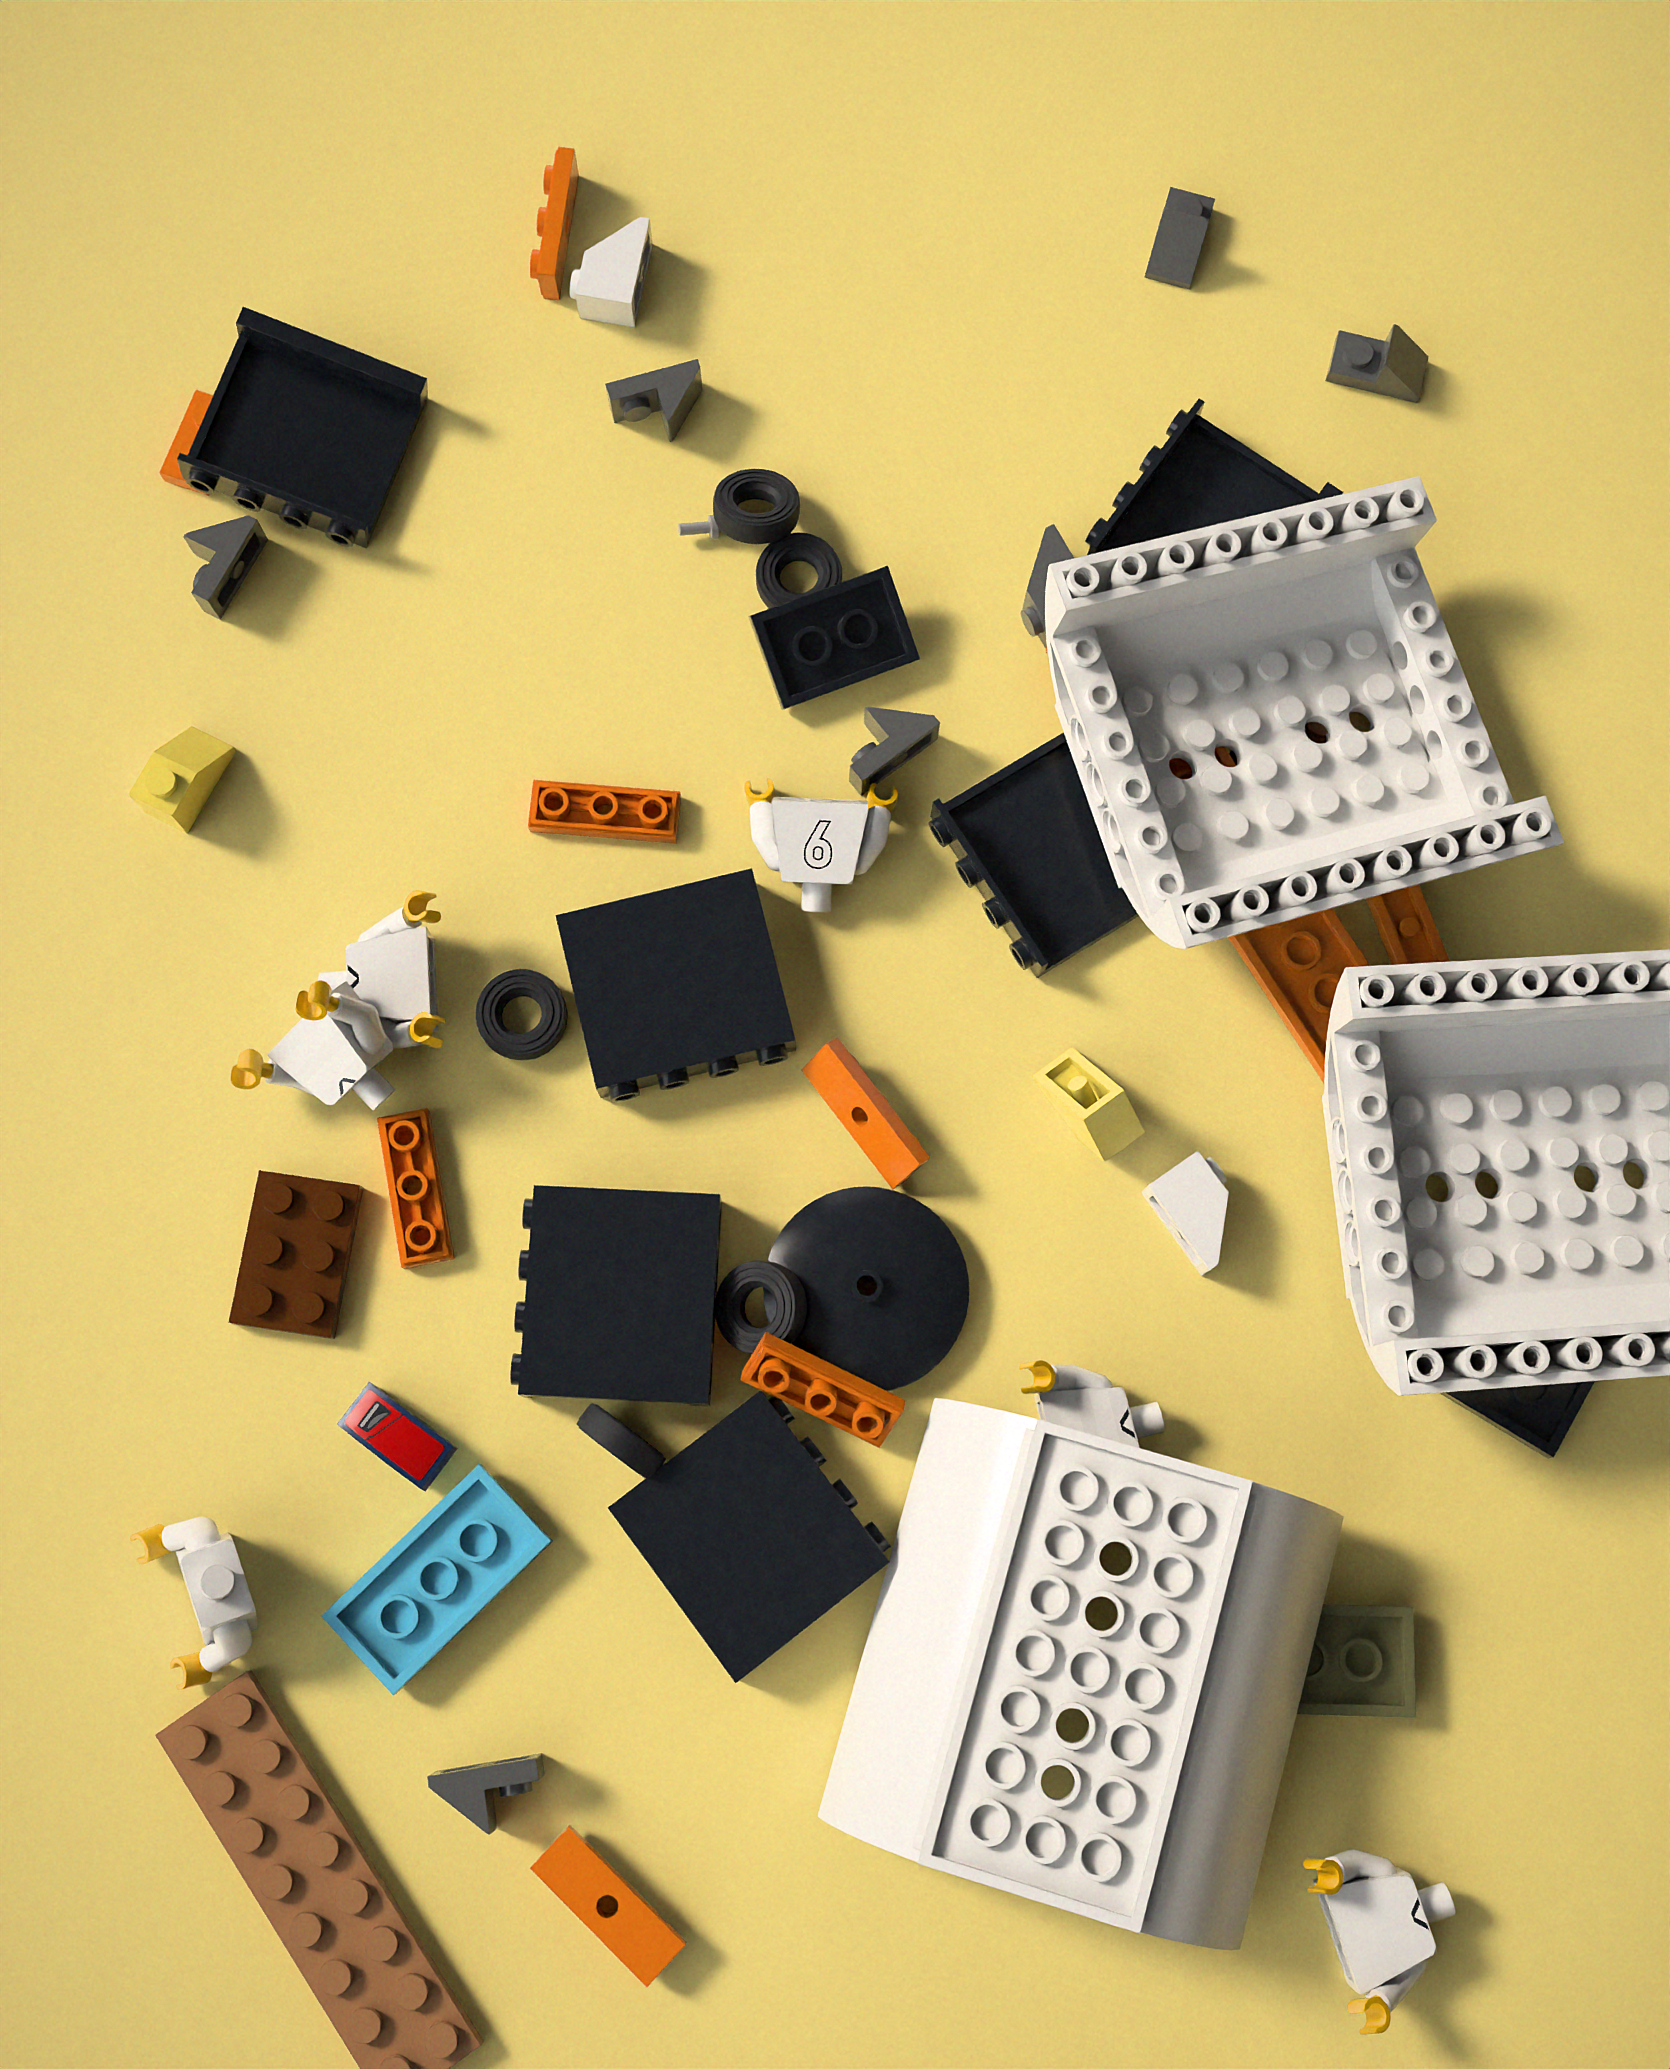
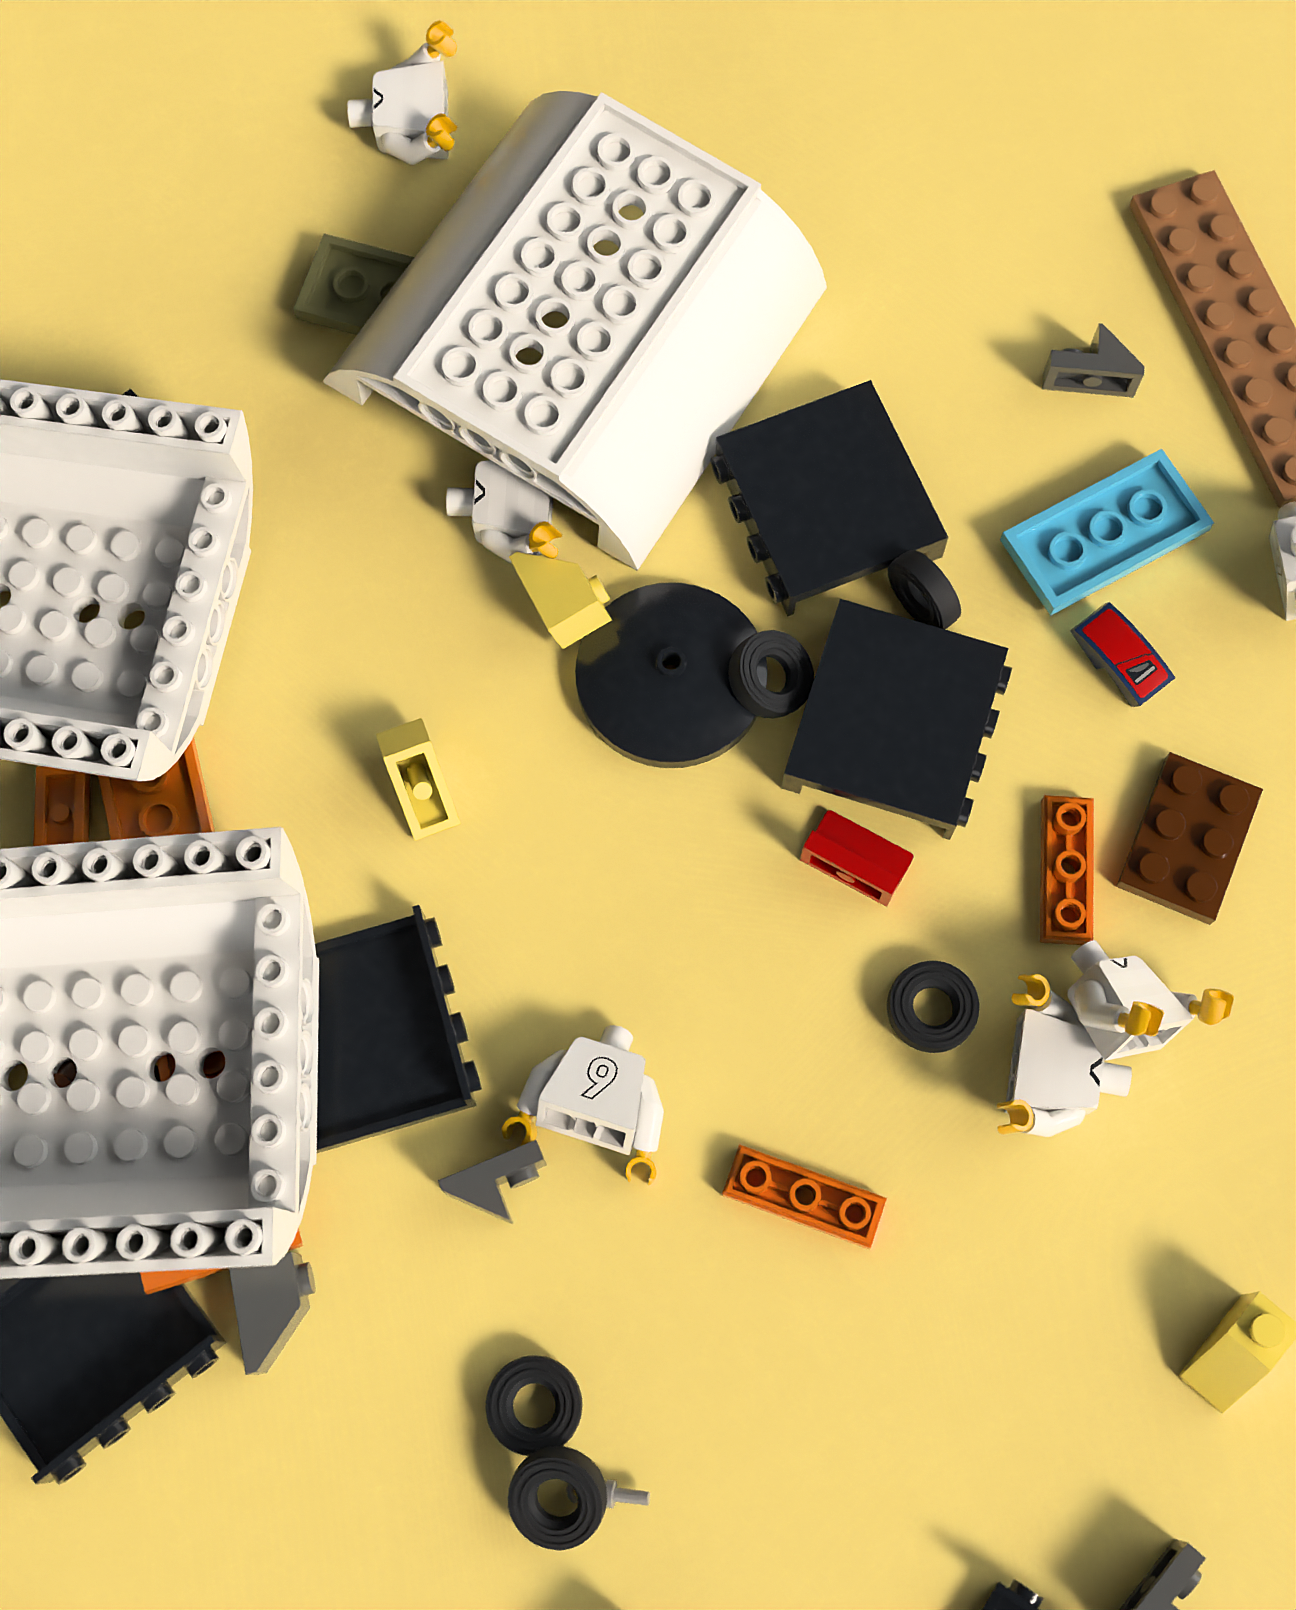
camera: 160 degrees left, 5 degrees down
(628, 1143) = (856, 857): none -> red panel
(632, 1932) = (1012, 263): orange tile -> none
(676, 985) = (776, 991): black panel -> none
(822, 1390) = (736, 589): orange tile -> none
(834, 637) = (517, 1315): black plate -> none
(865, 1113) = (626, 823): orange tile -> none
(1002, 1330) = (563, 596): none -> light yellow slope
(1192, 1208) = (355, 664): white slope -> none

